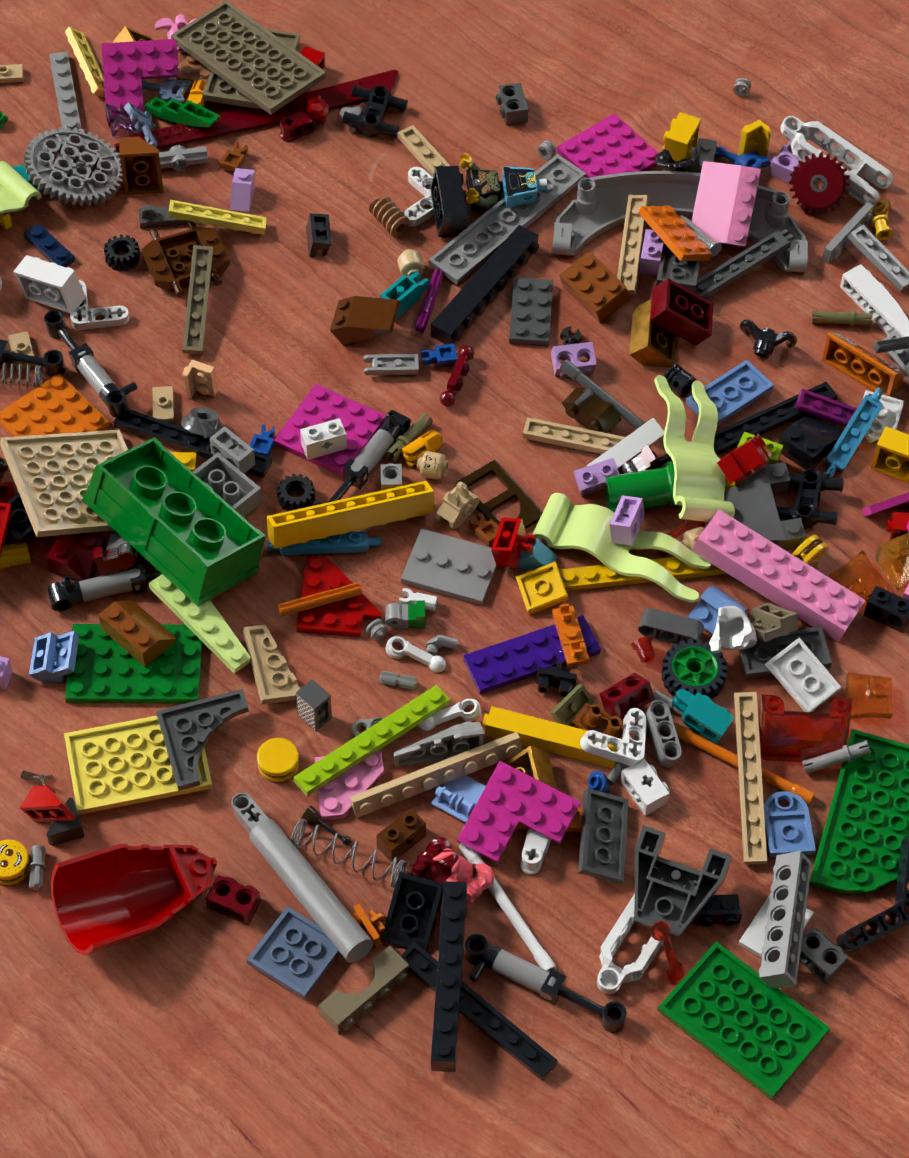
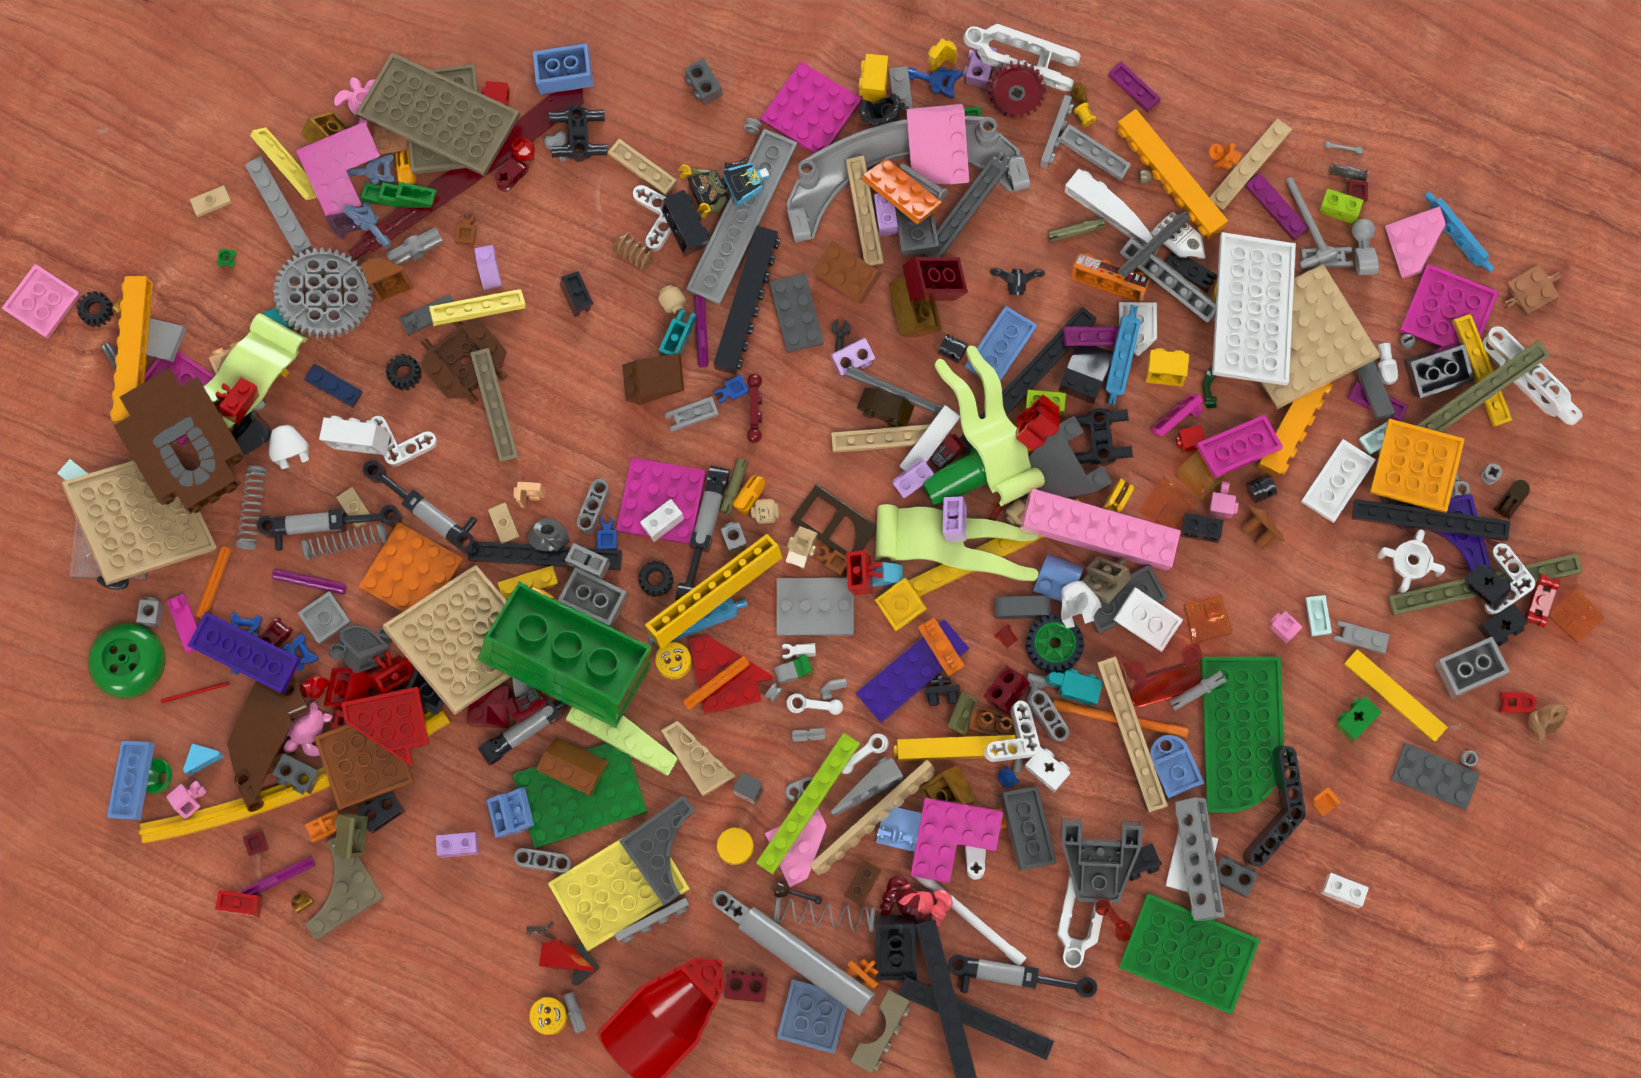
camera: 10 degrees left, 20 degrees up
(63, 704) = (535, 855): none -> light grey beam
(159, 802) = (659, 917): none -> light grey plate
(259, 412) = (593, 515): none -> light grey beam
(284, 570) = (673, 661): none -> yellow head
(382, 56) = (563, 68): none -> medium blue brick

